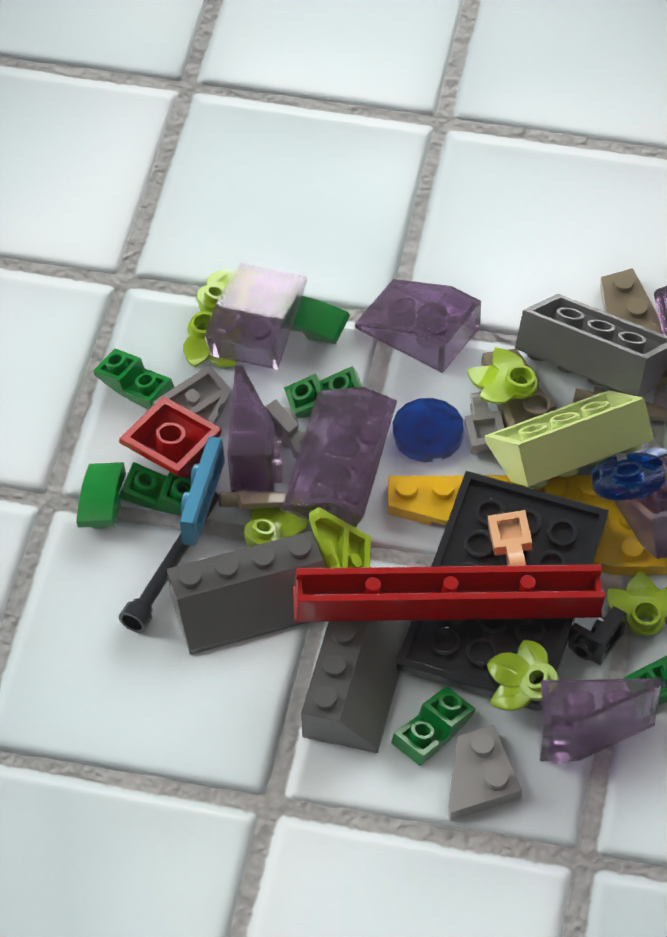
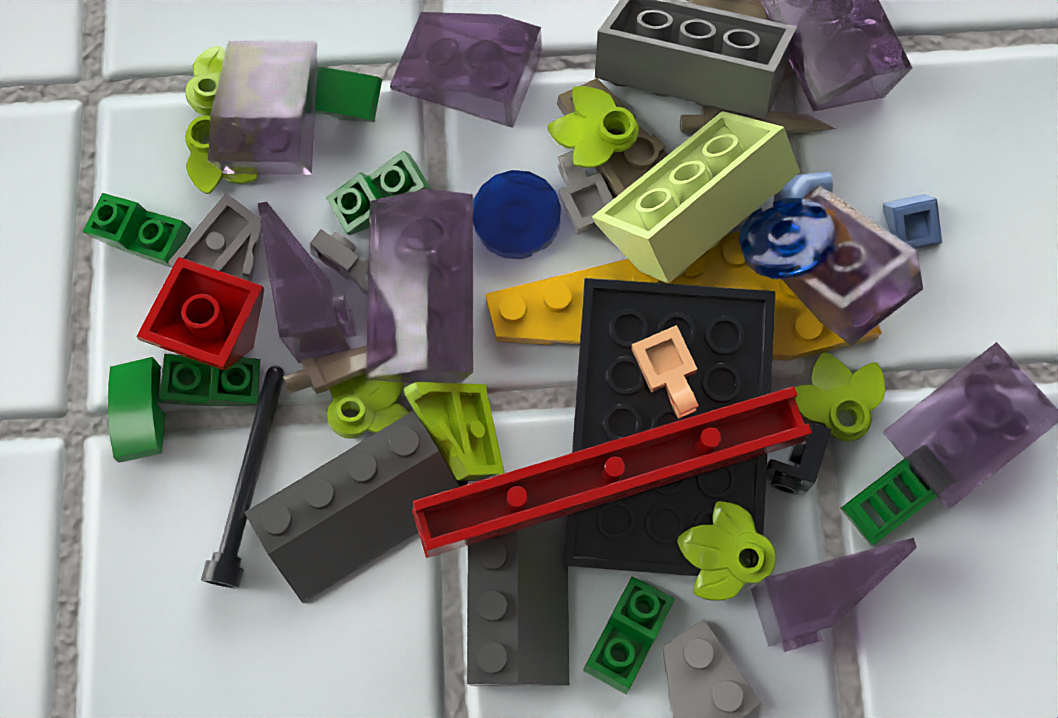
camera: 10 degrees left, 20 degrees up
(204, 483) = (260, 363): dark azure plate -> none

